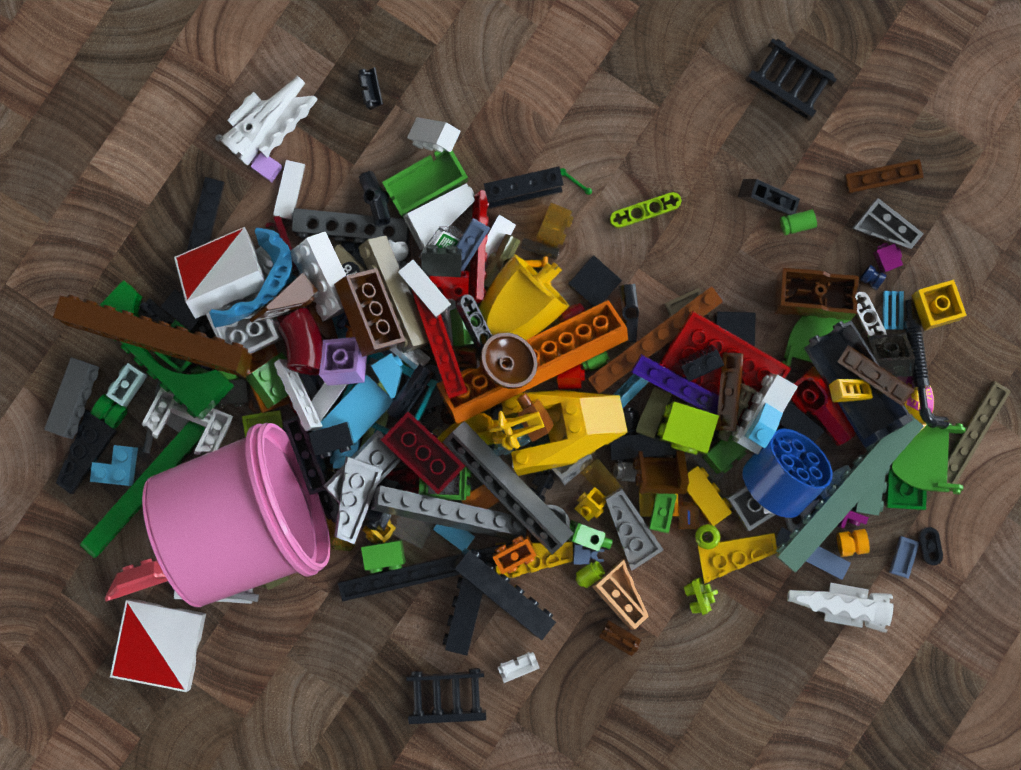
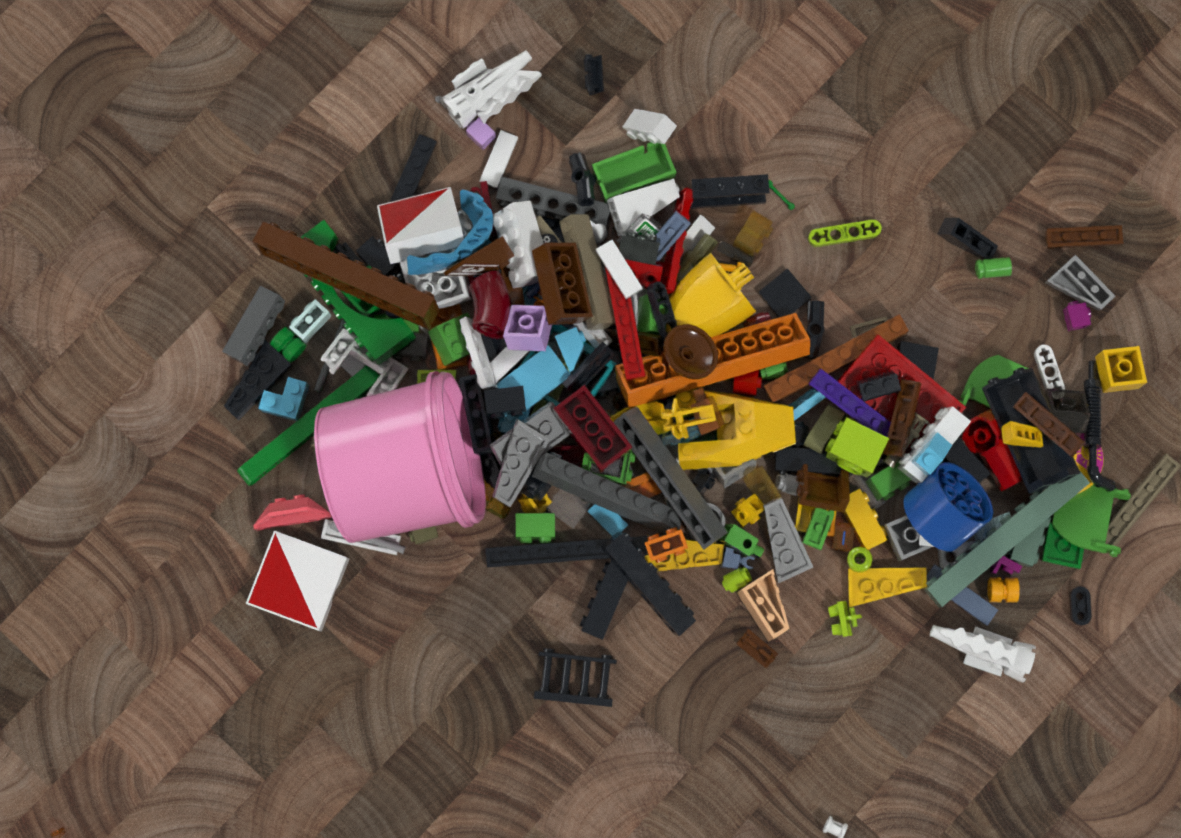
camera: 10 degrees right, 5 degrees down
(519, 667) = (644, 661): white hinge -> none
(775, 89) = (1002, 147): black fence -> none
(816, 294) = (1001, 338): reddish brown piece -> none
(872, 277) = (1059, 333): dark blue wheel -> none
(893, 294) = (1070, 351): medium azure tile -> none
(904, 557) = (1052, 613): sand blue tile -> none

